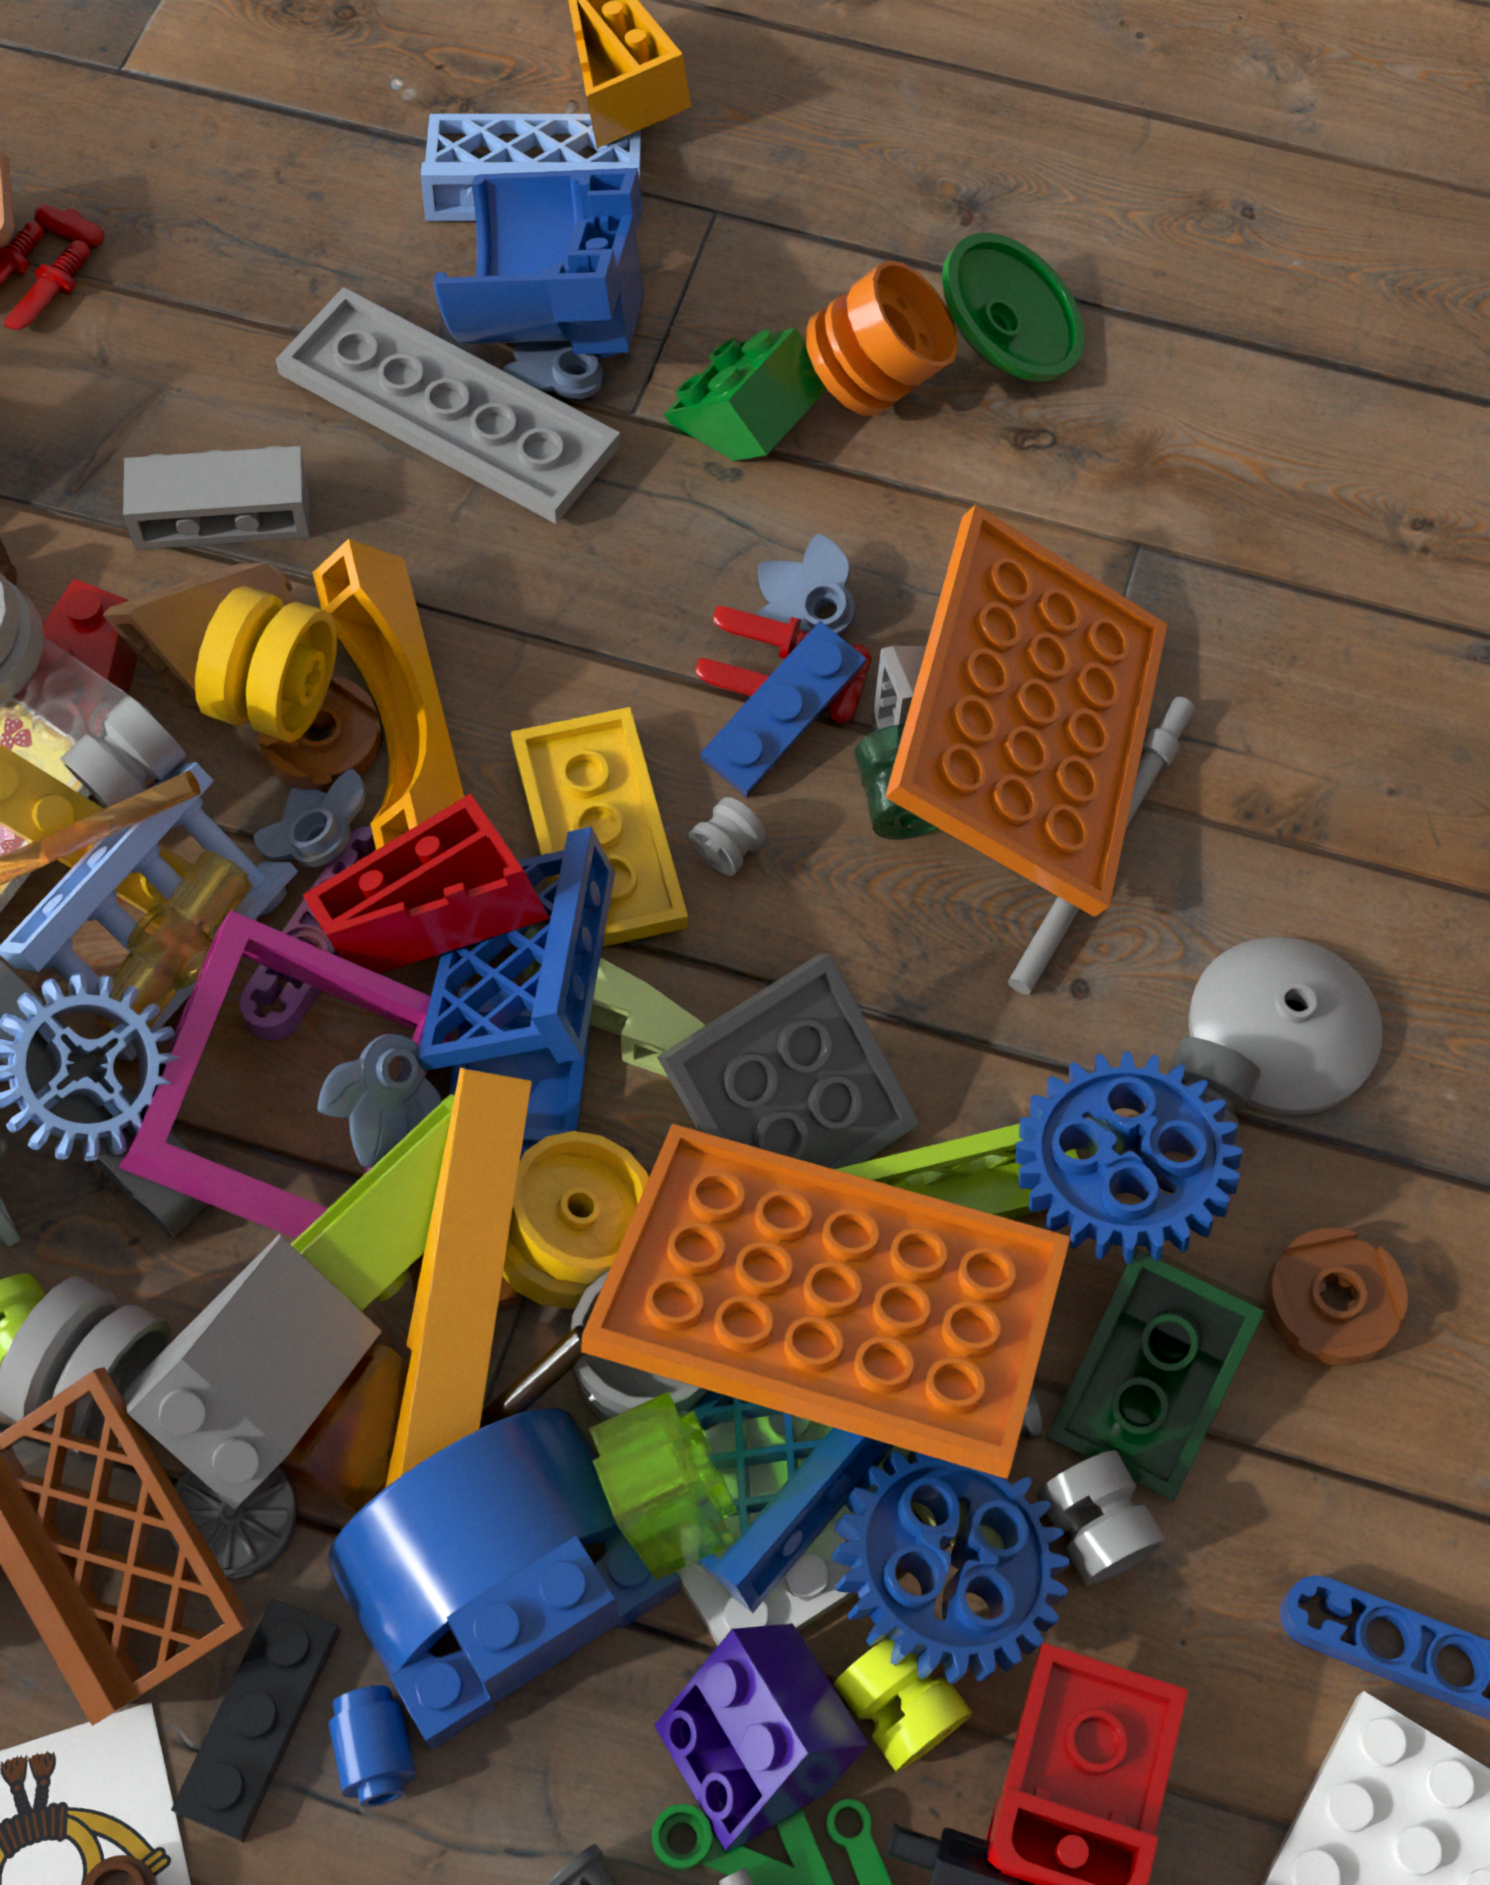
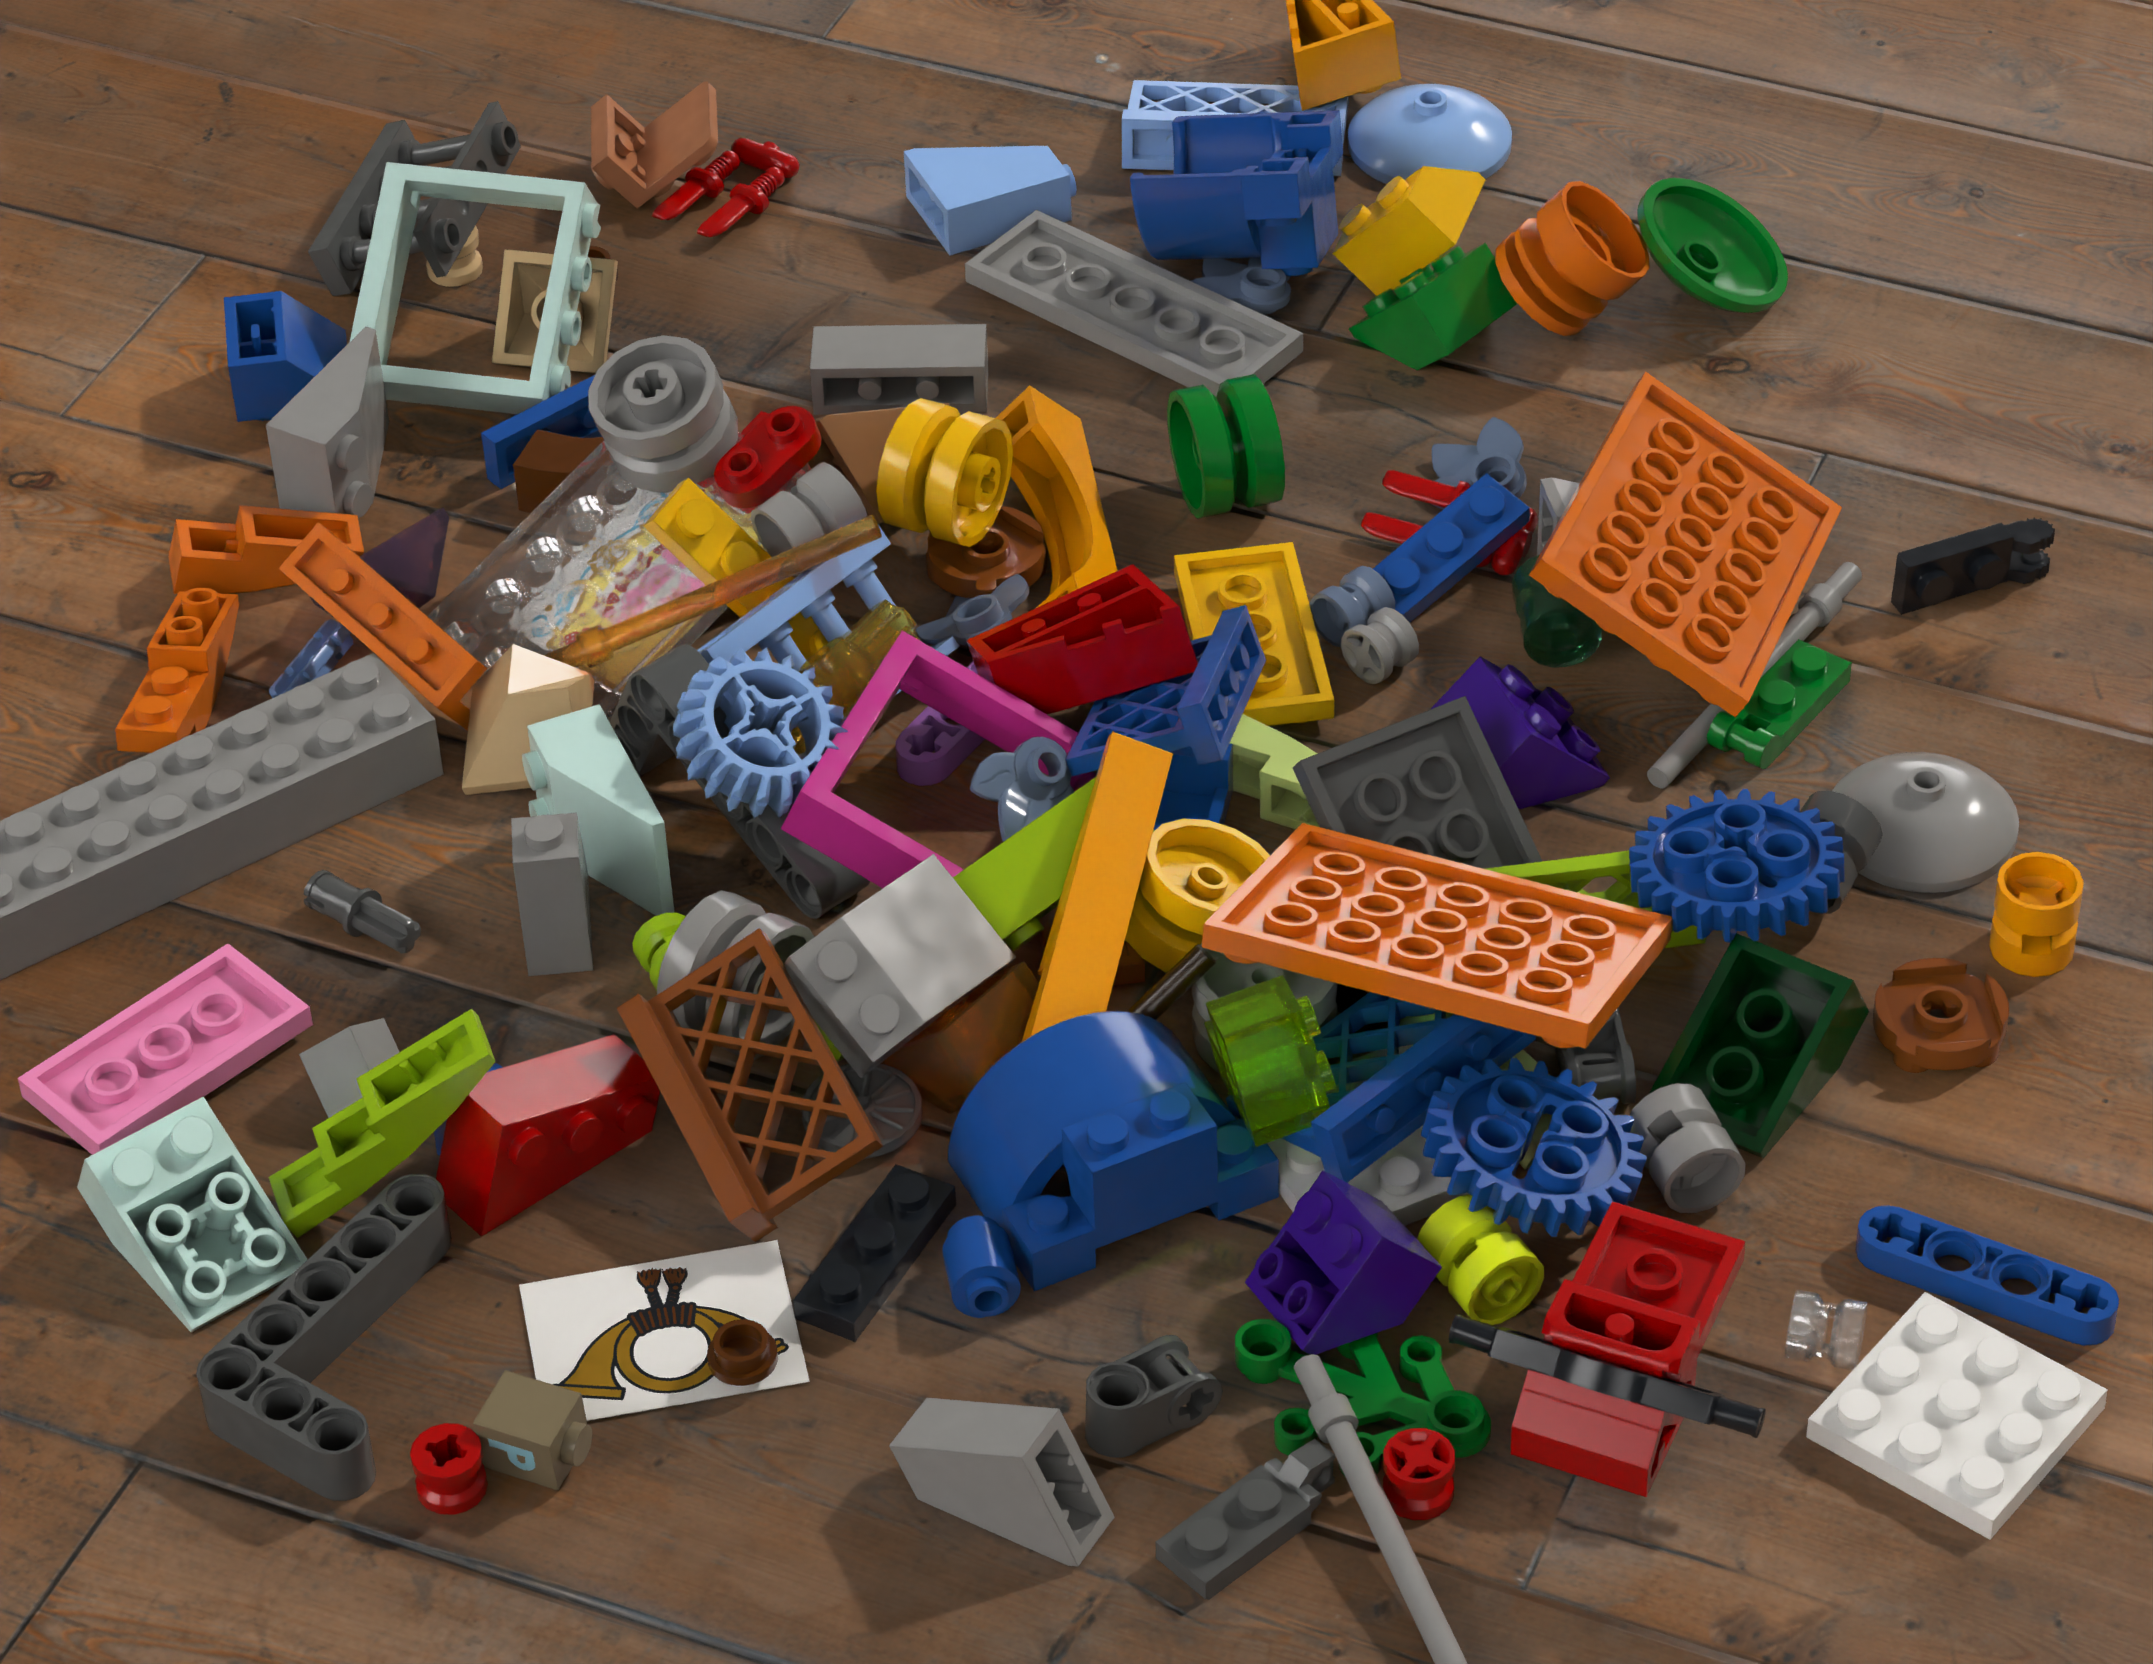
camera: 10 degrees right, 20 degrees down
(79, 675) = (773, 454): none -> red plate
(292, 264) = (985, 191): none -> light blue slope
(554, 596) = (1226, 446): none -> green wheel
(696, 786) = (1350, 604): none -> sand blue wheel
(716, 302) = (1407, 225): none -> yellow slope
(722, 171) = (1428, 128): none -> light blue dish
(882, 950) = (1529, 734): none -> dark purple slope
(1148, 858) = (1781, 704): none -> green plate
(1270, 1761) = (1810, 1327): none -> clear wheel
(1303, 690) = (1971, 563): none -> black hinge
(1422, 1163) = (2036, 914): none -> light orange wheel

